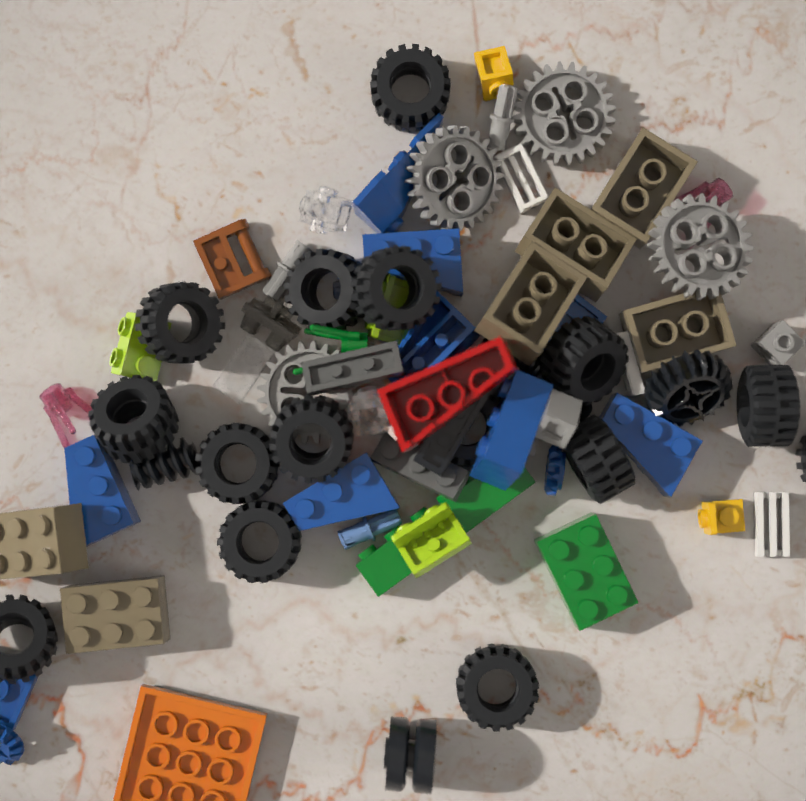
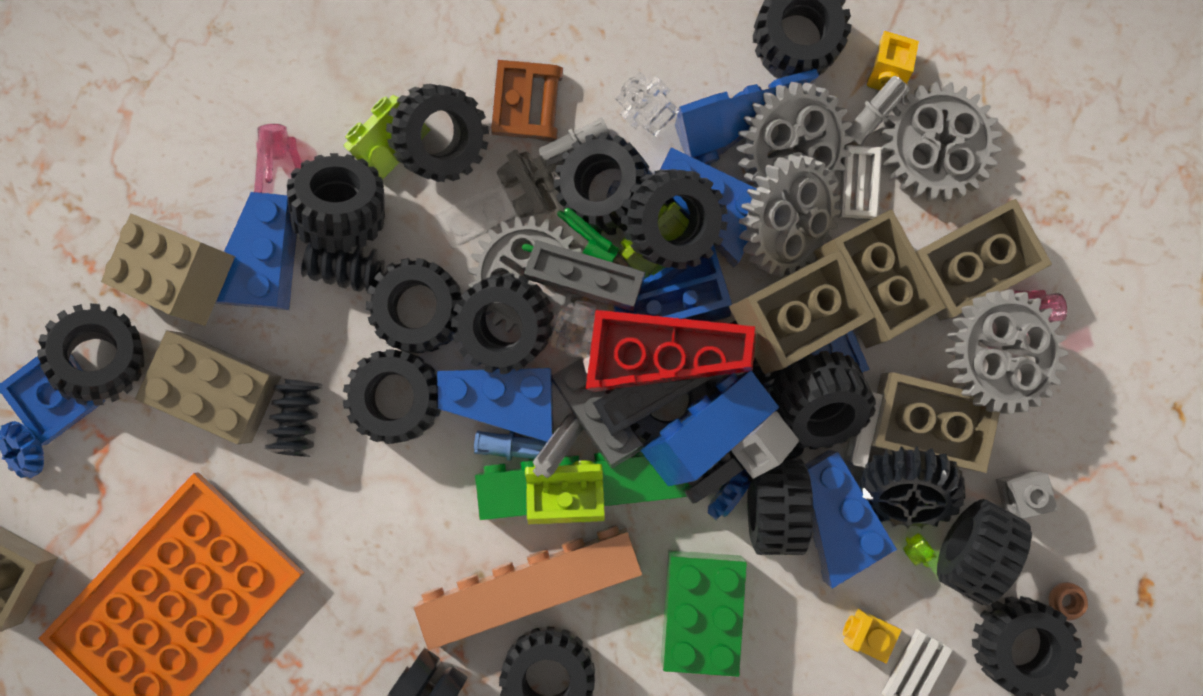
camera: 20 degrees right, 0 degrees up
(193, 600) = (293, 417): none -> black piece
(405, 507) = (557, 446): none -> light grey axle
(443, 628) = (527, 587): none -> nougat brick
(481, 235) = (789, 214): none -> light grey gear
(534, 468) = (714, 478): none -> black plate
(721, 431) = (919, 550): none -> clear neon green plate

